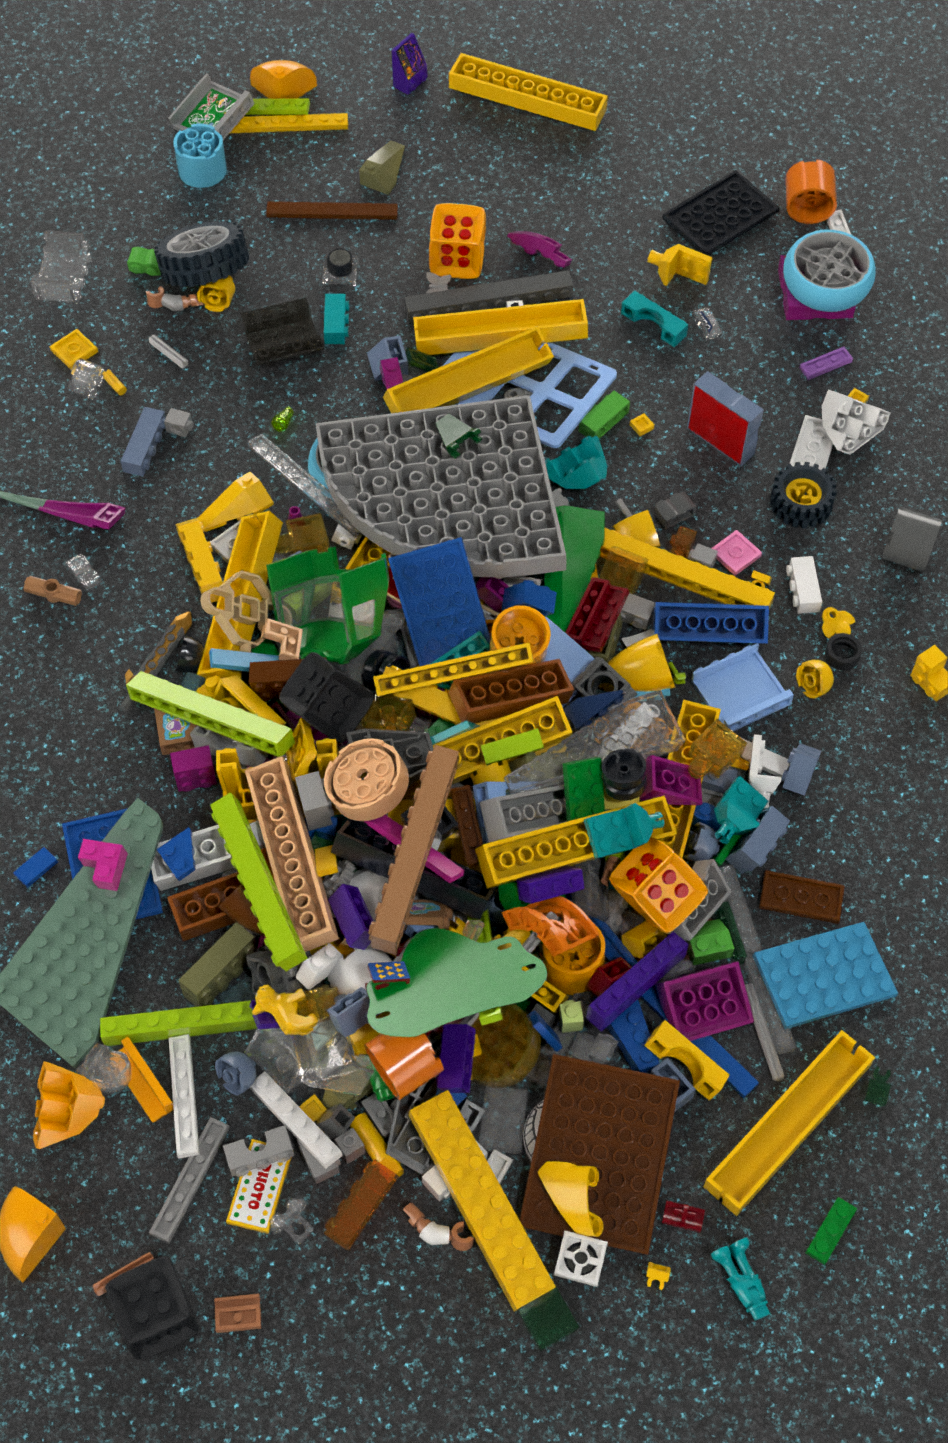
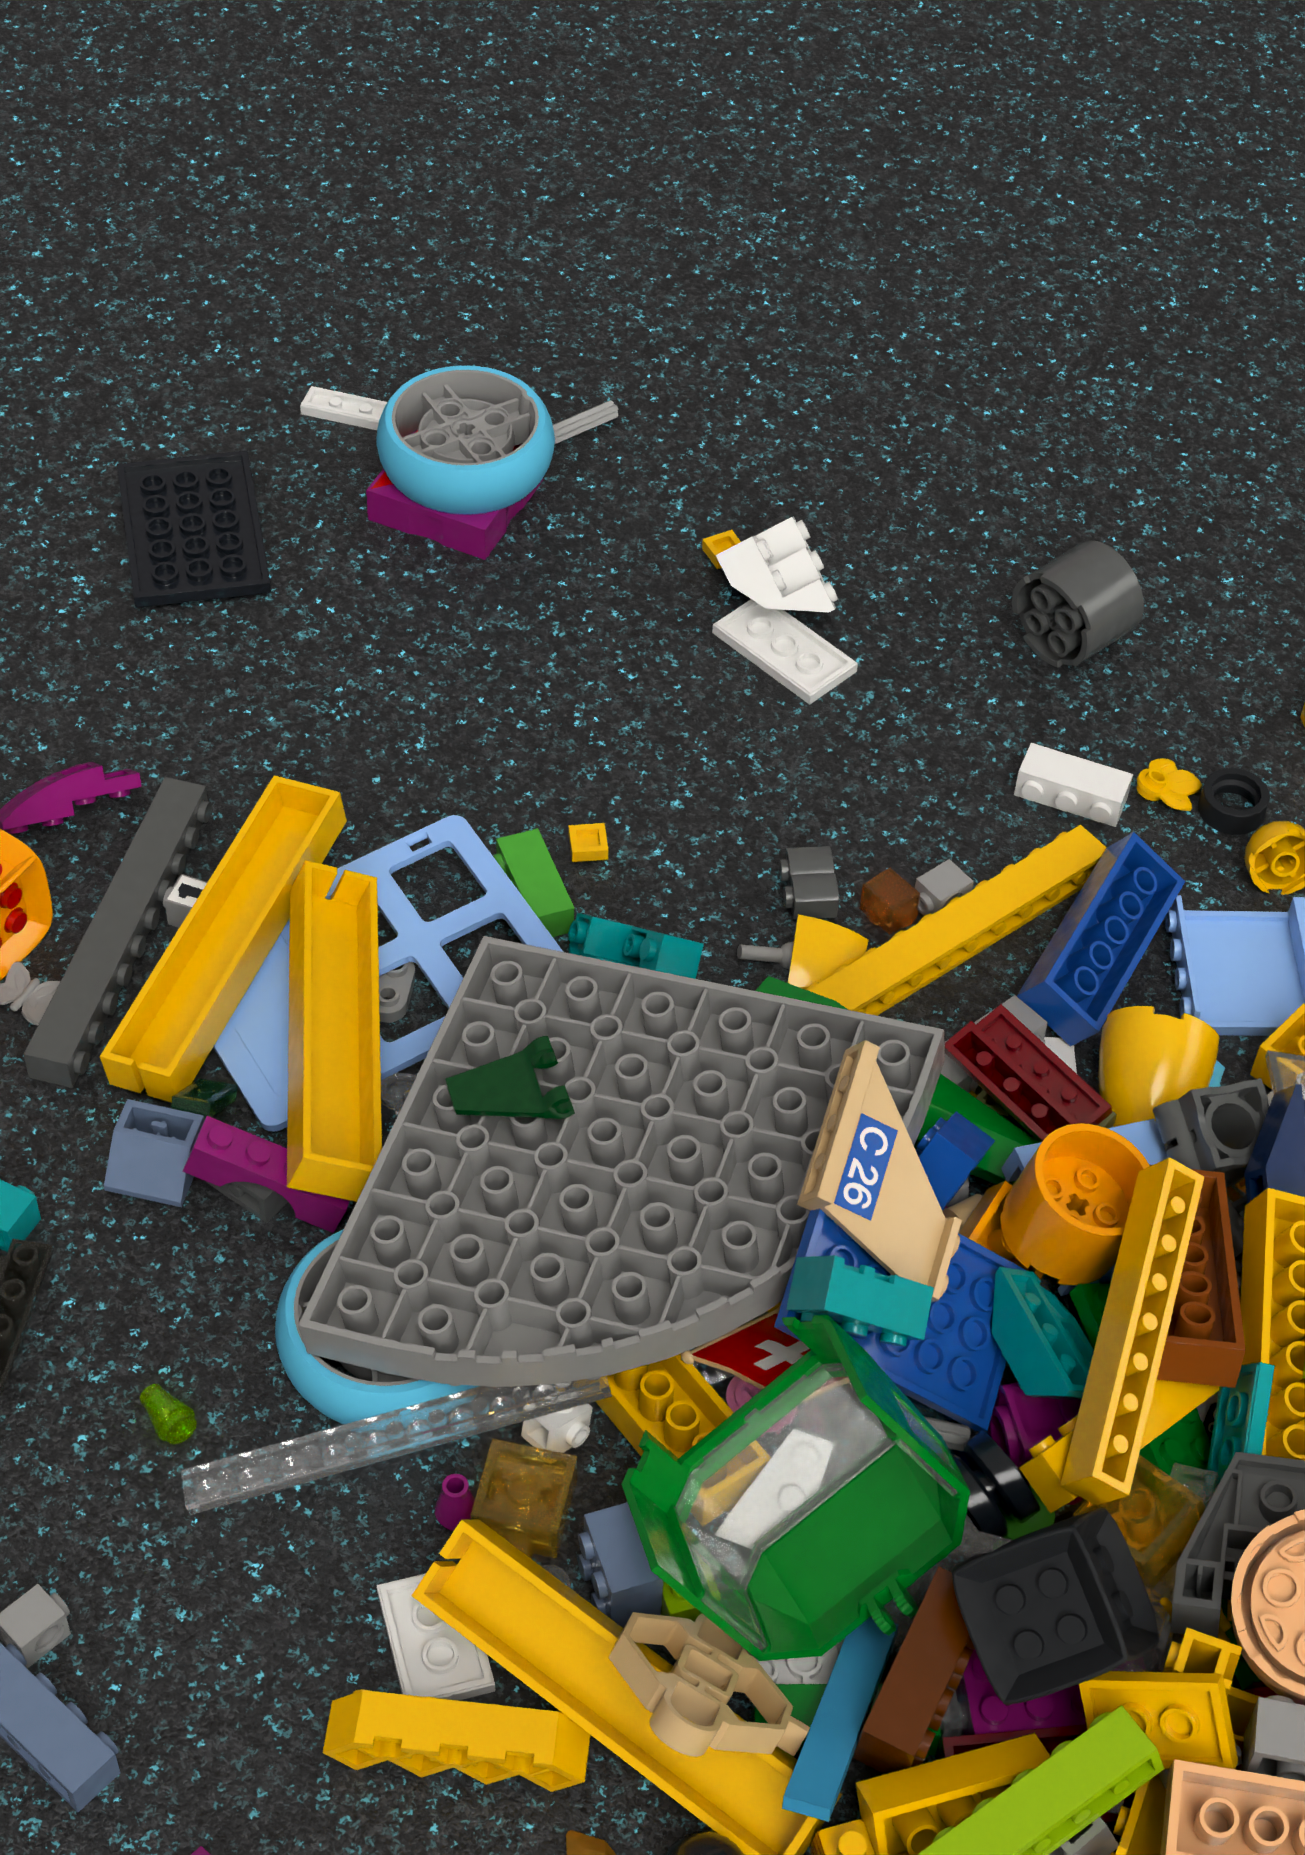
camera: 65 degrees left, 10 degrees down
(241, 498) = (341, 1591): yellow wedge -> none
(287, 635) = (810, 1636): light nougat brick -> none
(410, 574) = (860, 1299): none -> teal wedge
(466, 557) = (873, 1179): none -> tan piece
(624, 569) = (923, 995): clear yellow brick -> none
(638, 307) = (396, 703): teal arch -> none
(683, 262) = (276, 616): yellow plate -> none
(707, 322) = (417, 651): clear slope -> none
(724, 418) = (691, 708): tile -> none
(736, 552) = (952, 836): bright pink plate -> none
(760, 578) = (1029, 835): yellow tile -> none
(791, 487) = (889, 699): black wheel -> none
(811, 192) = (265, 389): orange brick -> none
(826, 363) = (617, 552): medium lavender tile -> none
(896, 312) = (585, 421): none -> light grey axle

